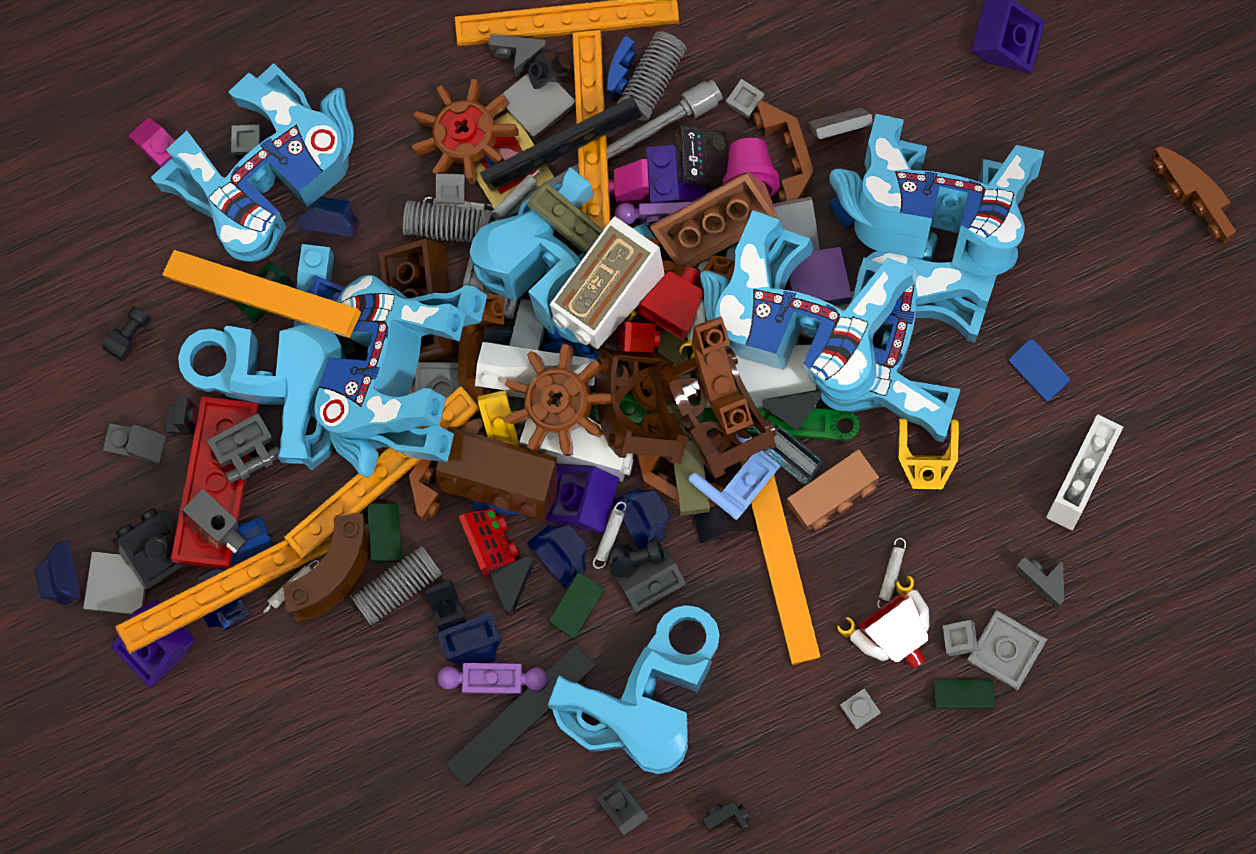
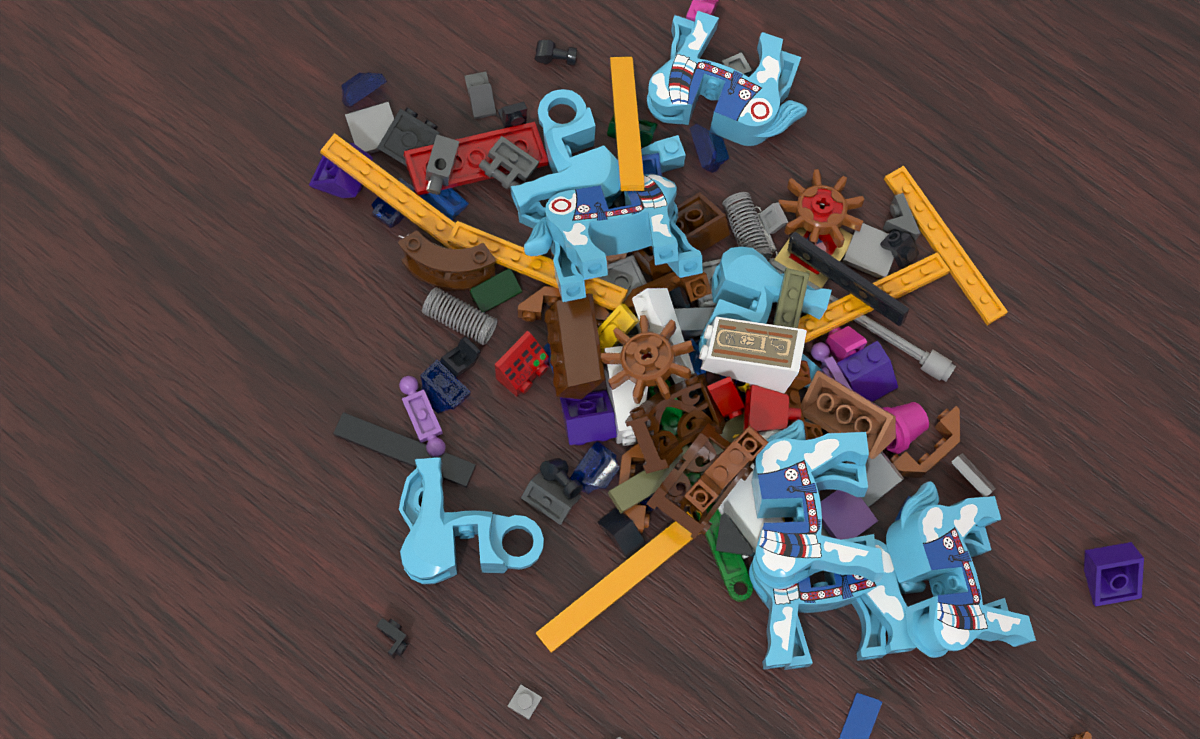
camera: 50 degrees right, 5 degrees down
(511, 581) = (500, 396): black slope -> none
(515, 196) = (784, 263): white piece -> none
(560, 552) = (539, 421): clear blue slope -> none
(576, 605) = (505, 451): dark green slope -> none
(609, 535) = (571, 450): white piece -> none
(618, 74) = (920, 298): blue slope -> none
(622, 808) = (365, 555): dark grey slope -> none
(658, 71) = (965, 323): light grey piece -> none
(700, 156) = (892, 383): clear smoke plate -> none
(743, 486) = (655, 531): light blue plate -> none
(745, 99) = (954, 396): light grey plate -> none
(794, 456) = (696, 558): slope -> none
(833, 491) = (684, 602): nougat brick -> none
(892, 572) = (642, 678): white piece -> none
(894, 629) = (598, 699): torso -> none
(916, 464) = (743, 672): yellow piece -> none

